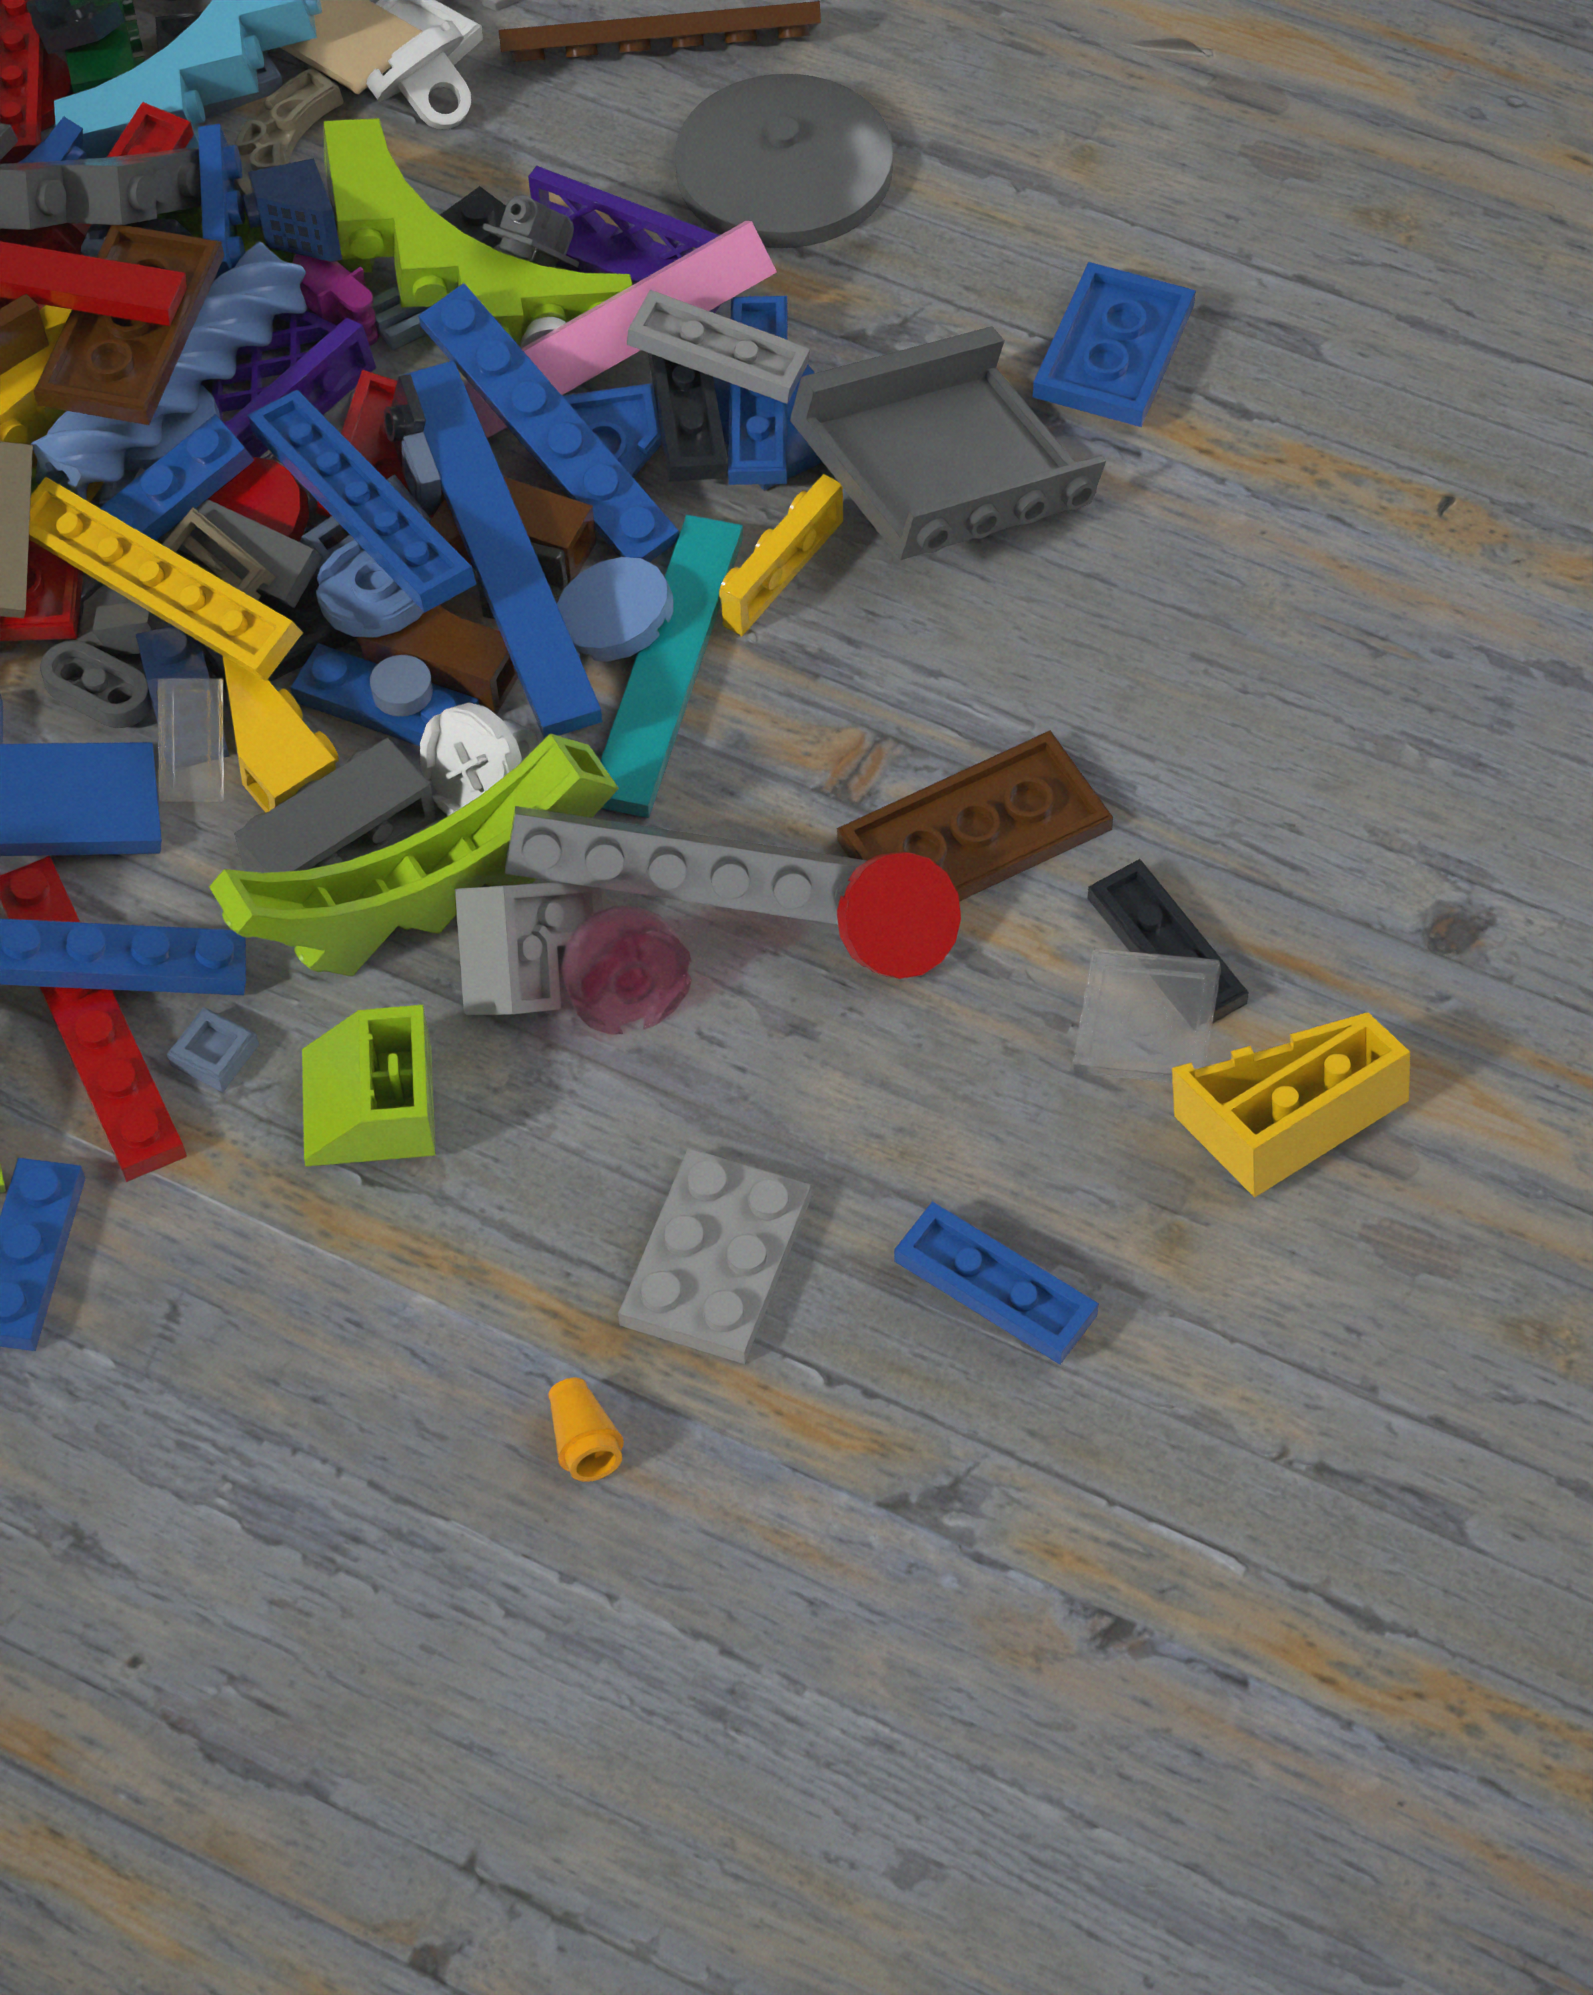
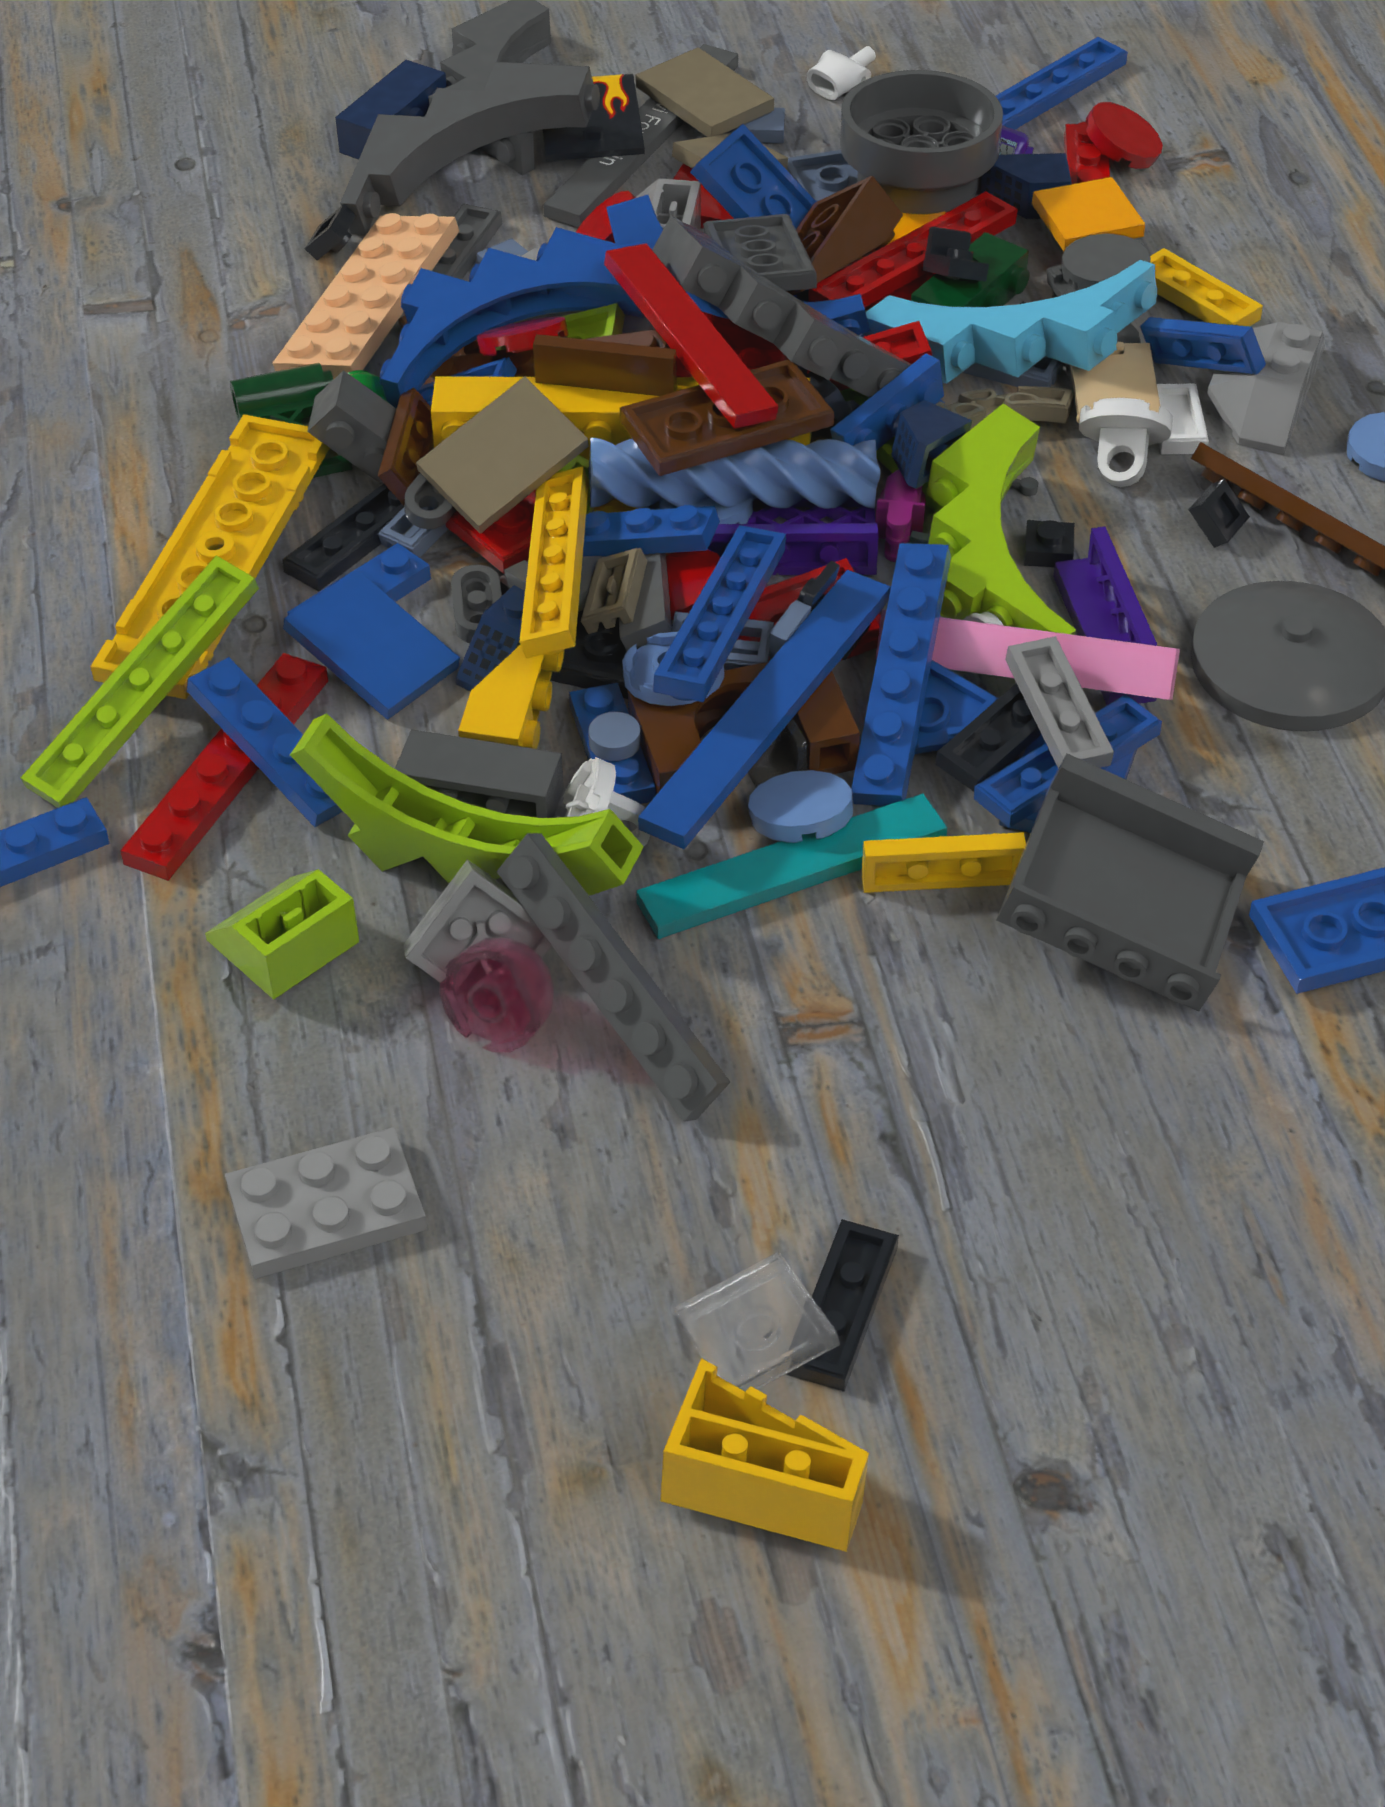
camera: 50 degrees right, 10 degrees down
(190, 740) = (467, 665): clear tile -> none
(213, 1049) = (256, 838): sand blue tile -> none
(535, 232) = (1035, 550): dark grey hinge -> none
(580, 83) = (1219, 513): none -> black plate
(583, 1432) = (110, 1217): light orange cone -> none
(899, 915) = (691, 1115): red tile -> none
(988, 817) = (830, 1123): reddish brown tile -> none
(996, 1282) = (437, 1381): blue plate -> none

